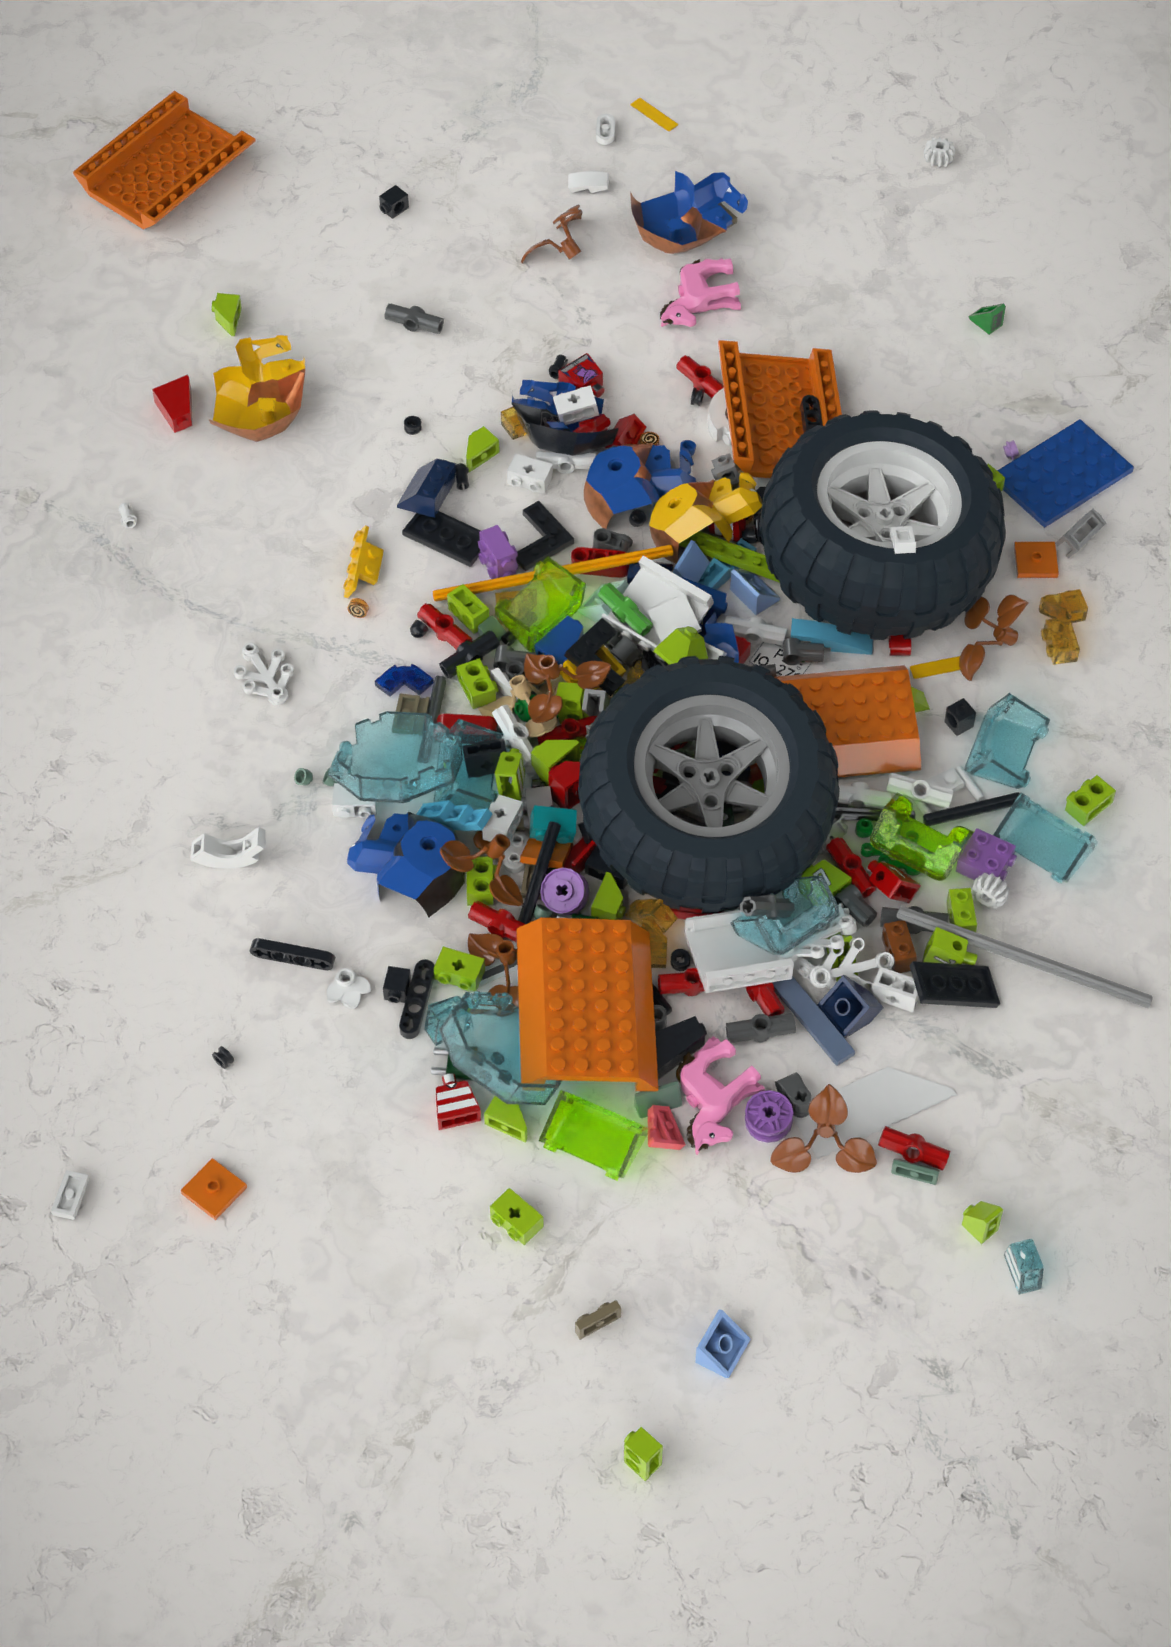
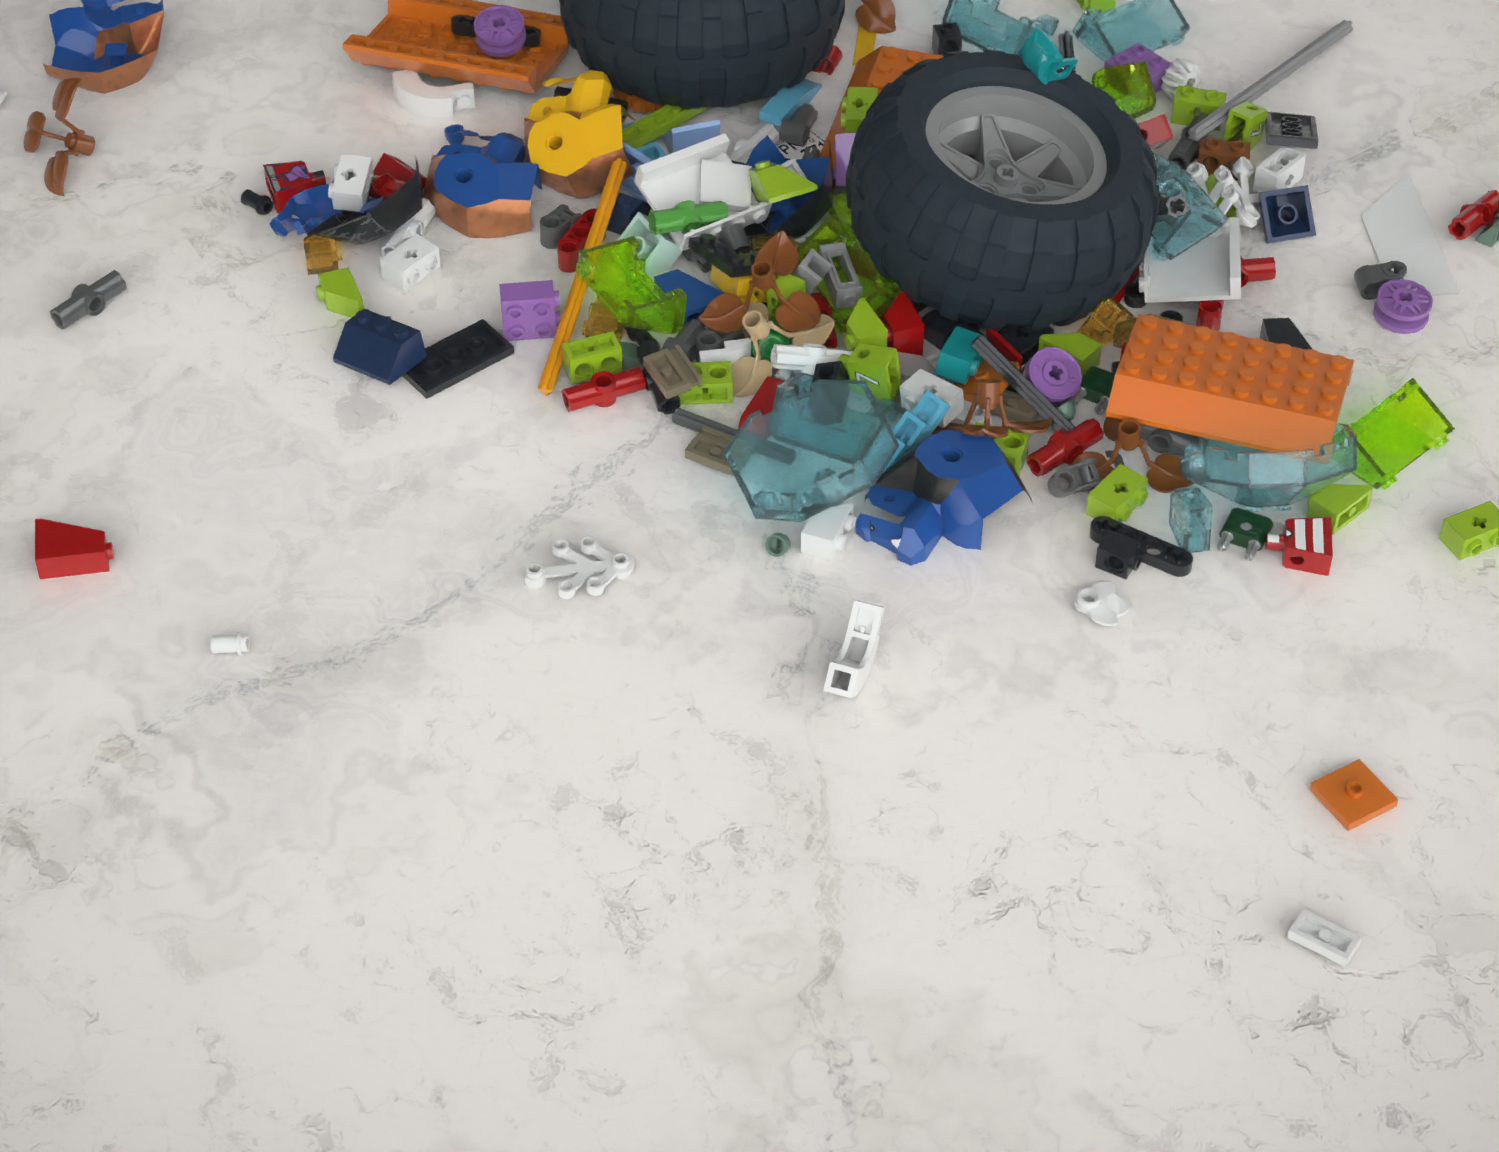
camera: 70 degrees left, 10 degrees down
(223, 1057) = (1165, 738): black bush -> none
(256, 397) = (122, 457): yellow piece -> none
(292, 954) = (1034, 639): black beam -> none
(302, 779) = (765, 574): sand green hinge -> none
(358, 608) = (527, 457): tile -> none
(364, 563) = (455, 438): yellow bracket -> none
(409, 428) = (264, 347): black bush -> none
(411, 676) = (656, 444): clear blue plate -> none
(418, 629) = (590, 413): black hinge -> none
(460, 656) = (672, 371): none -> dark tan plate
(465, 937) = (1080, 478): none -> dark grey piece
(554, 537) = (519, 266): black plate -> none
(639, 518) = (536, 198): black hinge -> none
(649, 437) = (423, 159): tile -> none
(663, 1129) = (1380, 386): coral wing -> none
(667, 1095) = (1354, 393): sand green slope -> none
(697, 296) = (229, 65): bright pink animal -> none
(697, 396) = (383, 107): black bush -> none
(699, 375) = (360, 96): red piece -> none
(710, 1095) = (1364, 340): bright pink animal -> none
(725, 467) = (511, 109): light grey brick -> none
(773, 1025) = (1288, 283): dark grey piece -> none
(793, 423) = (500, 31): none -> medium lavender wheel
(795, 742) = (1044, 58): none -> teal piece
(804, 675) = (856, 106): none -> lime brick
(814, 1020) = (1296, 245): sand blue tile -> none
(826, 1110) = (1434, 265): dark orange plant -> none

